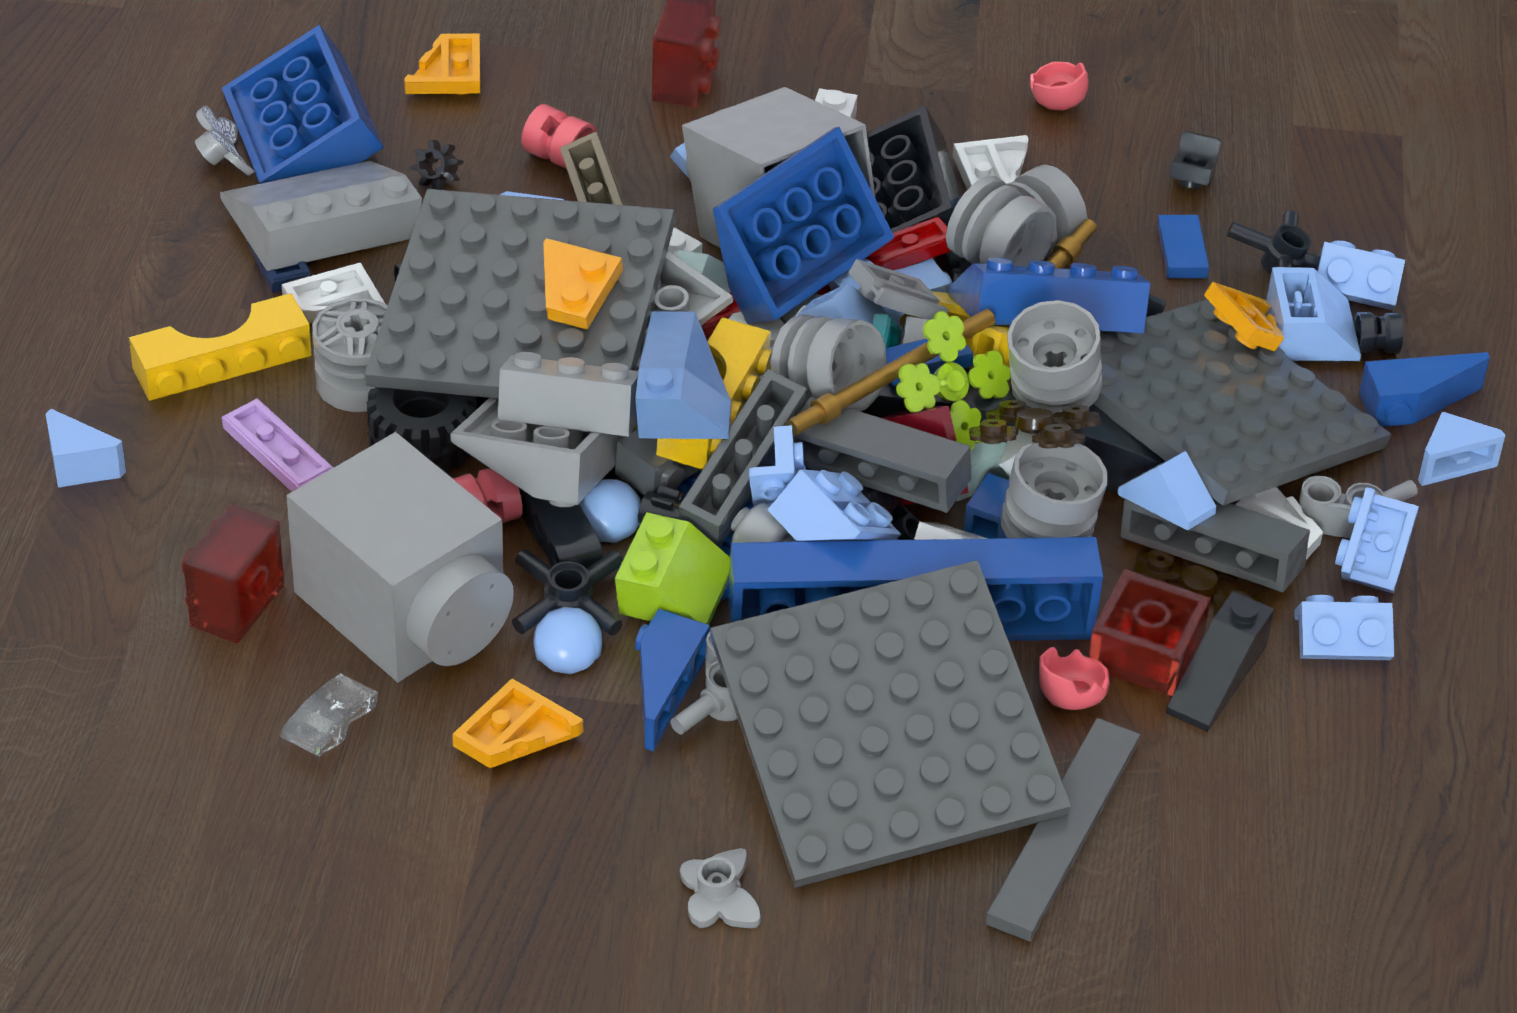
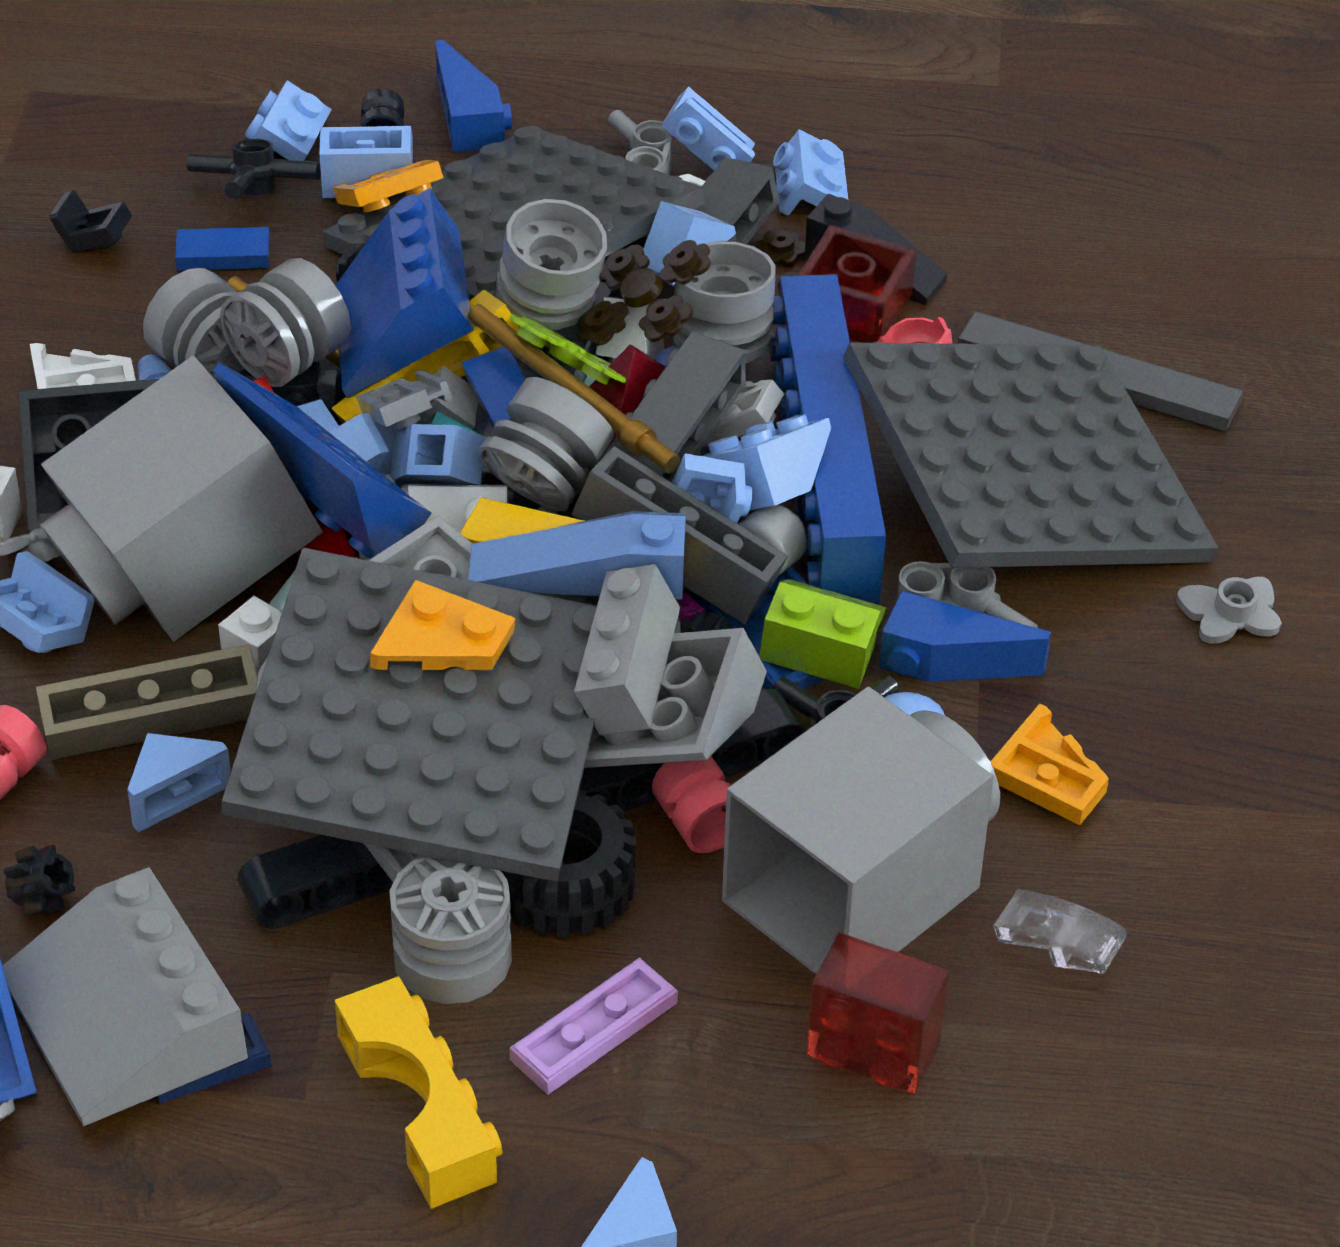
camera: 90 degrees left, 0 degrees up
(323, 289) = (305, 975): white wing -> none
(1459, 449) = (557, 88): light blue slope -> none

